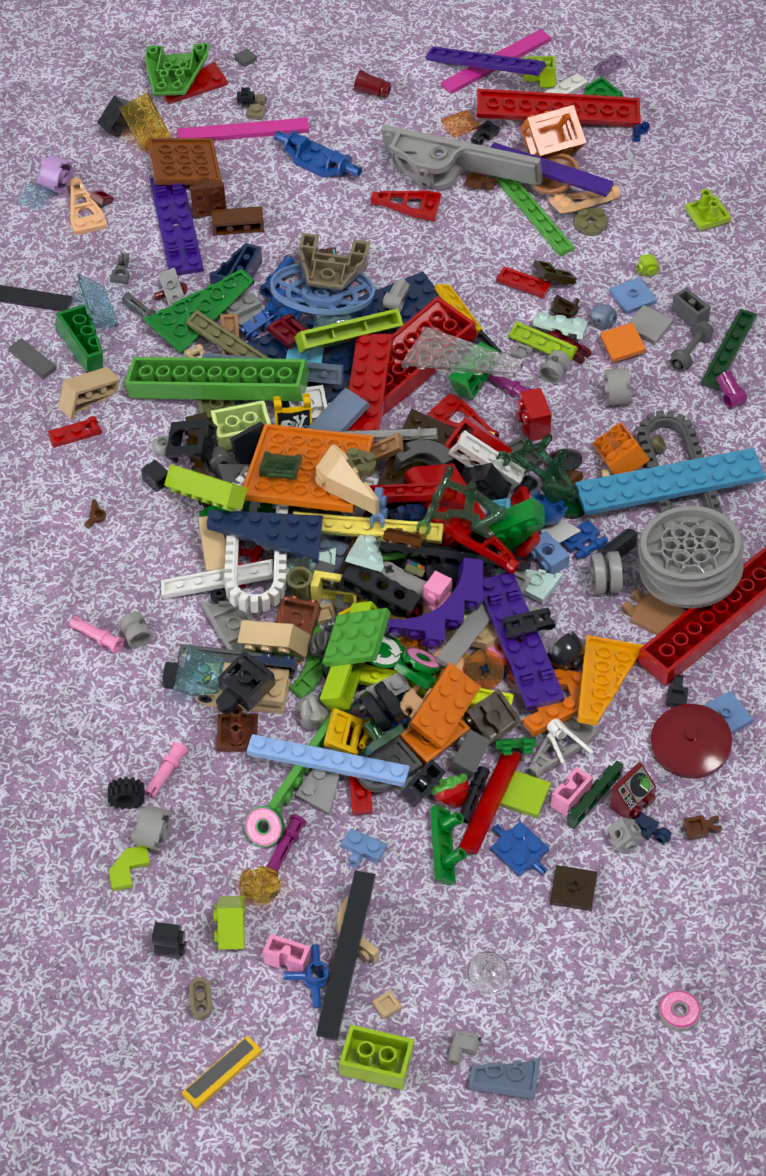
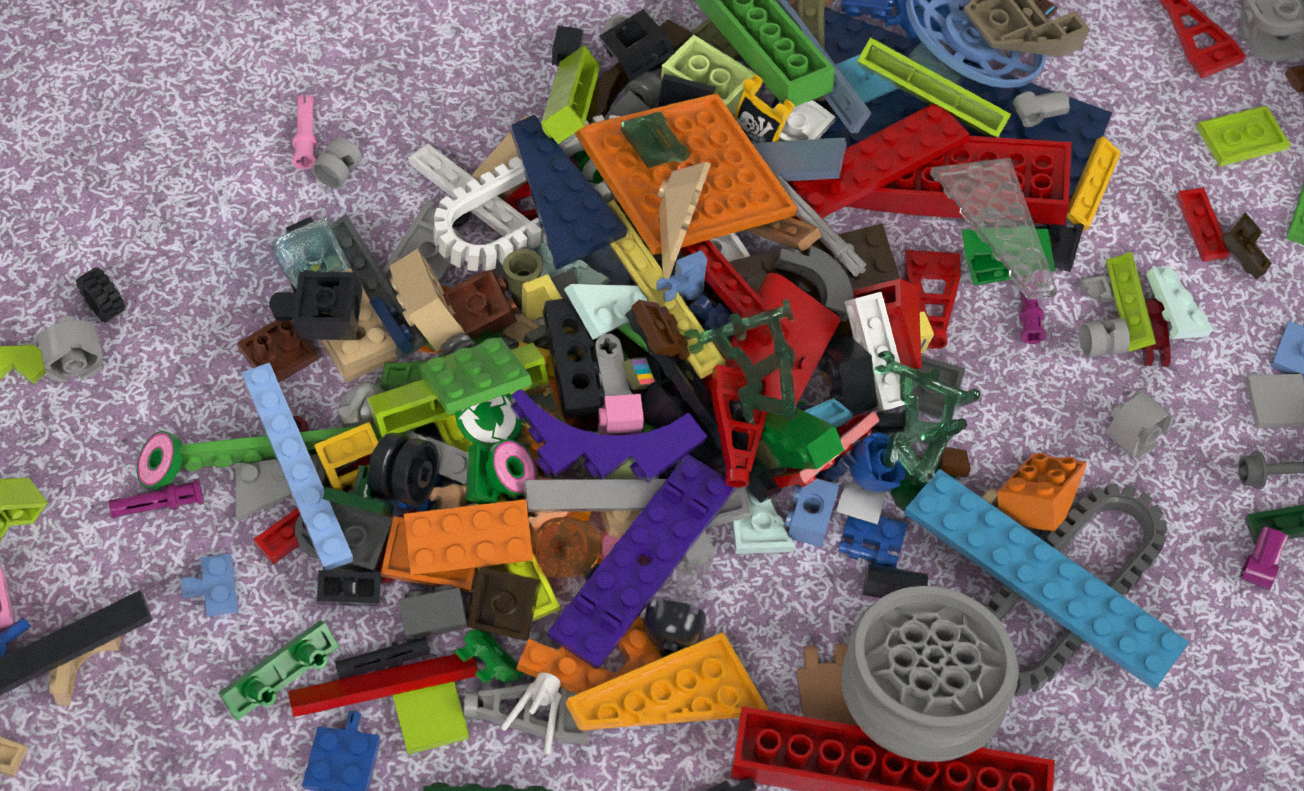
camera: 45 degrees right, 5 degrees up
(96, 514) = (469, 29): reddish brown animal -> none
(170, 763) = (183, 312): bright pink pin -> none
(252, 889) = (72, 523): clear yellow plate -> none
(284, 332) = (879, 27): dark red plate -> none
(365, 461) = (729, 202): olive plate -> none
(452, 791) = (364, 628): red hair -> none
(485, 229) = (1243, 135): none -> lime tile
(528, 622) = (666, 550): black plate -> none
(534, 414) = (1004, 359): red brick -> none
(564, 307) = (1207, 290): dark brown bracket -> none
(569, 795) = (463, 768): bright pink brick -> none
(572, 460) = (978, 441): black dish -> none
(603, 315) = (1237, 339): sand blue head -> none
(605, 572) = (832, 592): light grey wheel -> none
(622, 342) = (1217, 387): orange tile -> none
(658, 443) = (1099, 528): olive tile -> none

